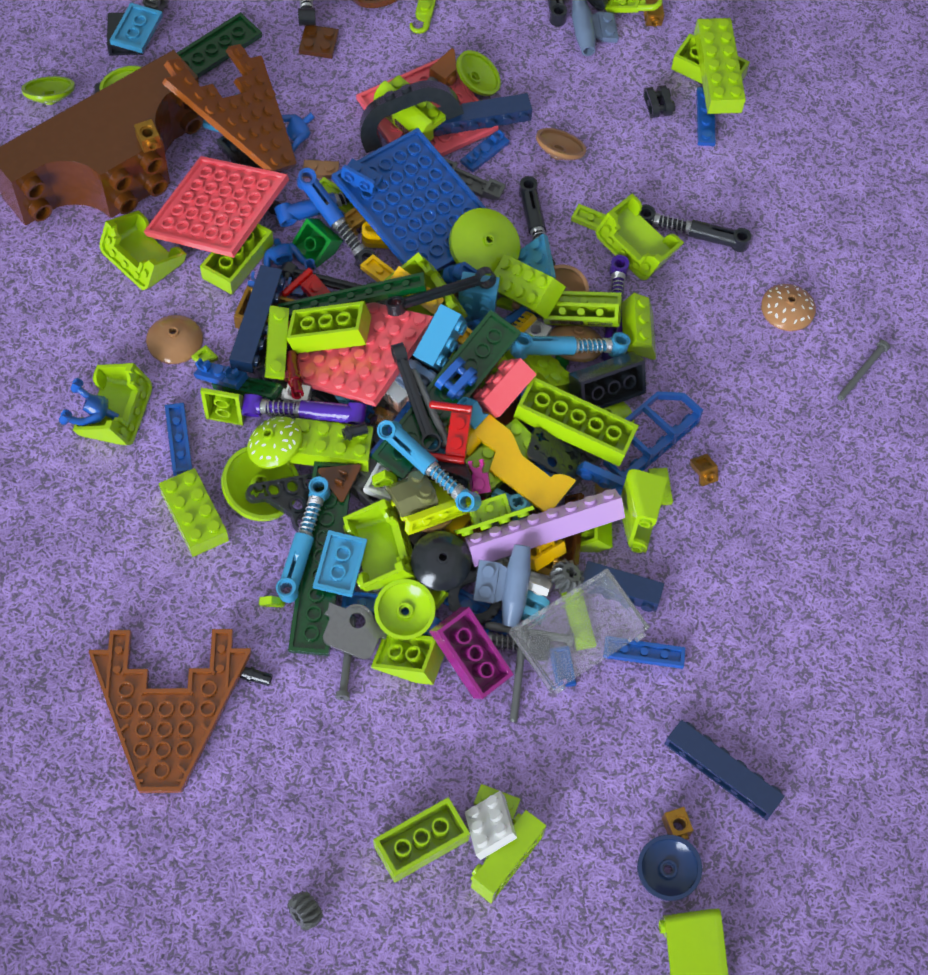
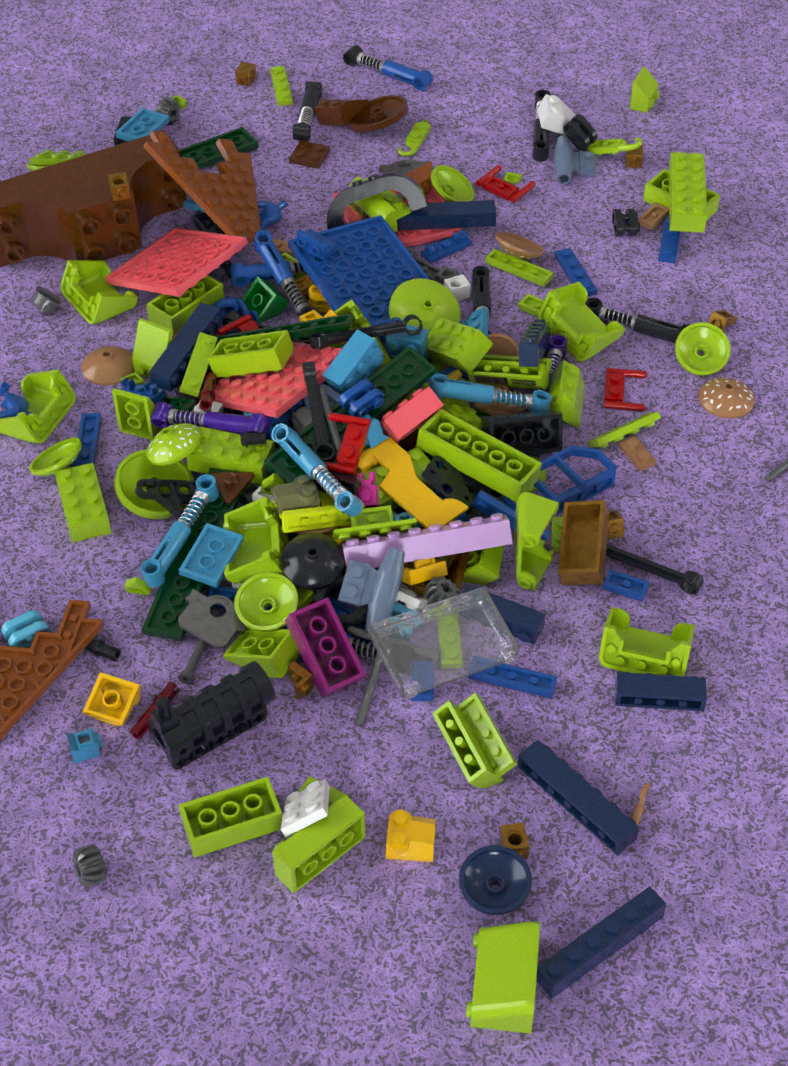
camera: 15 degrees right, 15 degrees down
(56, 77) = (48, 157): none -> lime plate
(90, 266) = (46, 300): none -> dark grey piece
(153, 463) = (56, 457): none -> lime dish
(165, 665) = (22, 629): none -> medium azure brick
(220, 324) = (149, 345): none -> lime slope
(265, 783) = (84, 745): none -> dark azure window
(280, 732) = (112, 699): none -> yellow slope
(325, 726) = (141, 726): none -> dark red pin
(381, 737) = (212, 715): none -> black piece
(416, 59) = (396, 167): none -> flat silver piece
(449, 680) = (301, 679): none -> pearl gold bracket
(507, 204) = (458, 286): none -> white brick
(527, 68) = (502, 188): none -> red plate
(534, 53) = (512, 178): none -> lime tile
(563, 170) = (519, 267): none -> lime plate
(584, 832) = (410, 837): none -> yellow slope
(602, 276) = (534, 343): none -> dark blue brick
(619, 168) = (574, 270): none -> blue plate
(624, 727) = (475, 741): none -> lime brick
(682, 309) = (615, 389): none -> red plate
(685, 89) = (653, 216): none -> medium nougat plate
(687, 501) = (583, 543): none -> pearl gold piece
(699, 359) = (630, 427): none -> lime plate
(715, 384) = (637, 453): none -> medium nougat plate
(729, 537) = (626, 585): none -> blue plate
(760, 606) = (643, 650): none -> lime windscreen
(770, 215) = (722, 318): none -> pearl gold bracket
(770, 911) = (600, 942): none -> dark blue brick
(771, 256) = (708, 340): none -> lime dish
(779, 649) = (660, 691): none -> dark blue brick
(779, 771) = (639, 808): none -> medium nougat piece
(785, 526) = (659, 570): none -> black piece

